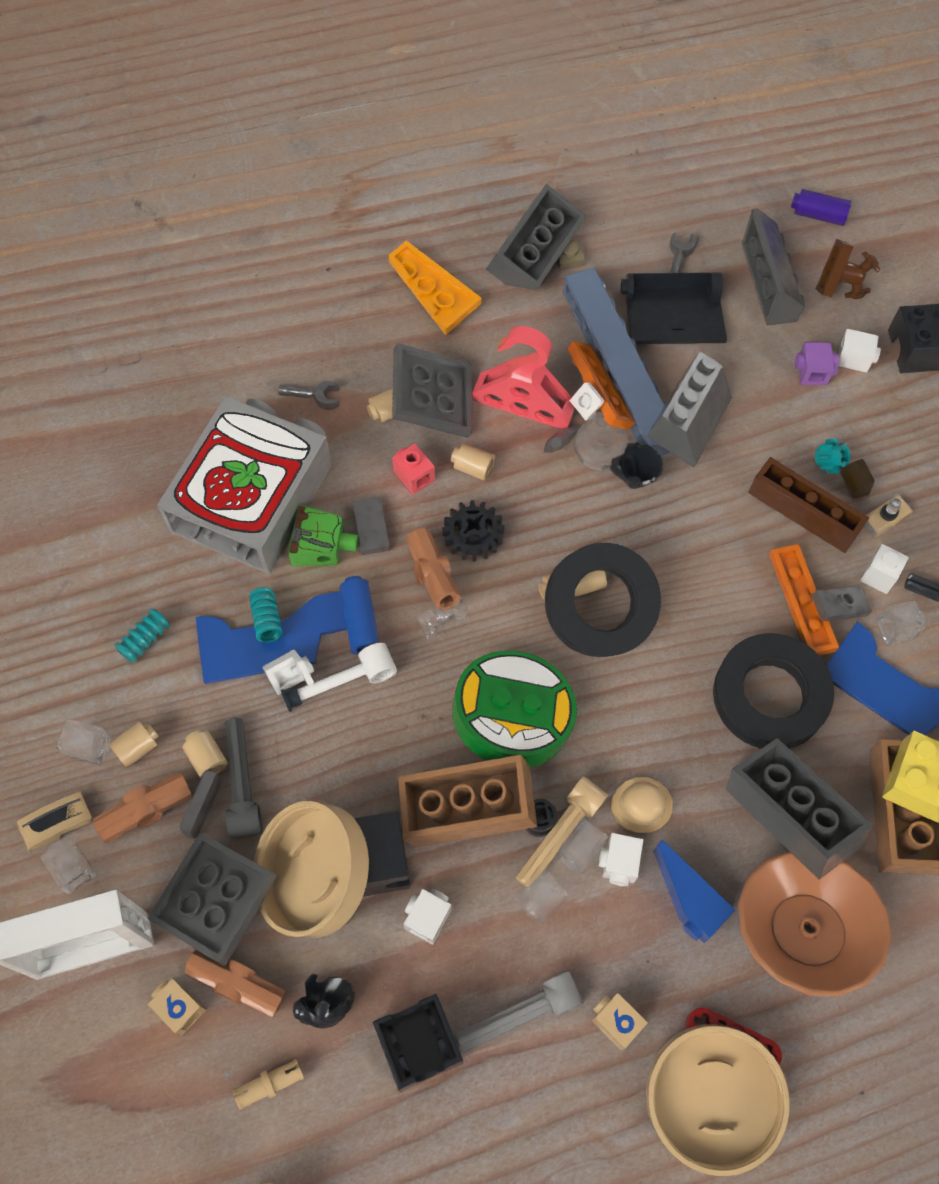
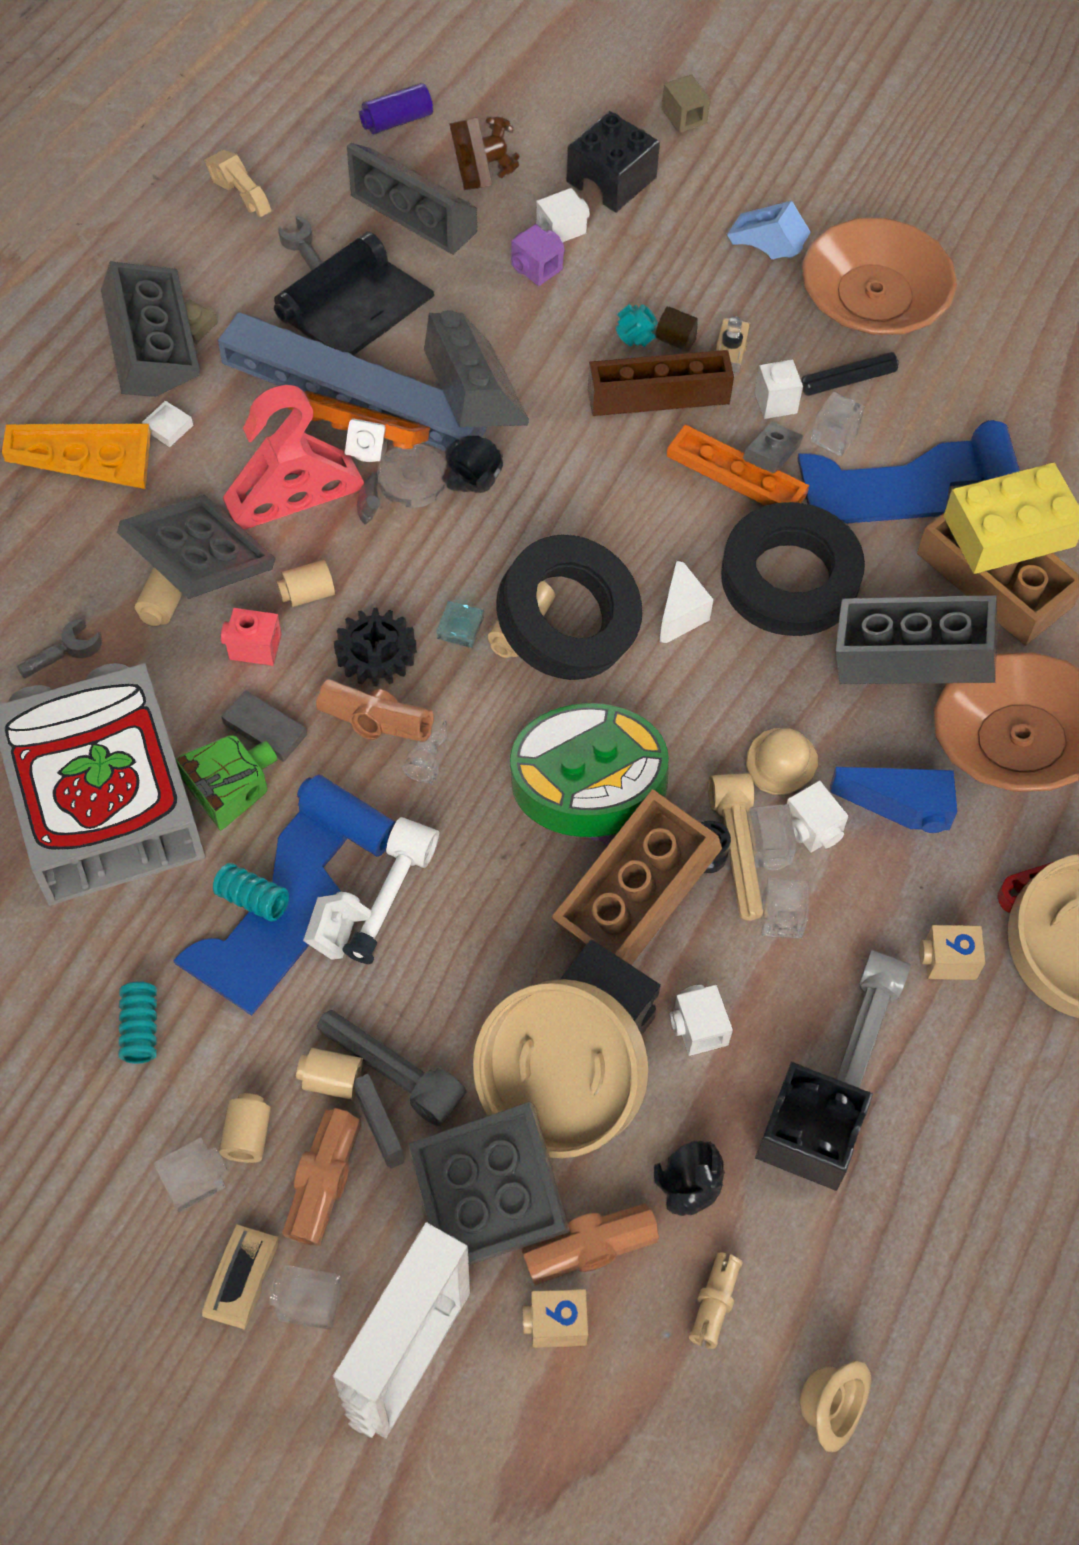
camera: 45 degrees left, 5 degrees down
(495, 306) = (168, 423): none -> white tile
(535, 557) = (460, 624): none -> clear light blue plate
(678, 181) = (229, 172): none -> tan piece
(678, 657) = (686, 604): none -> white slope

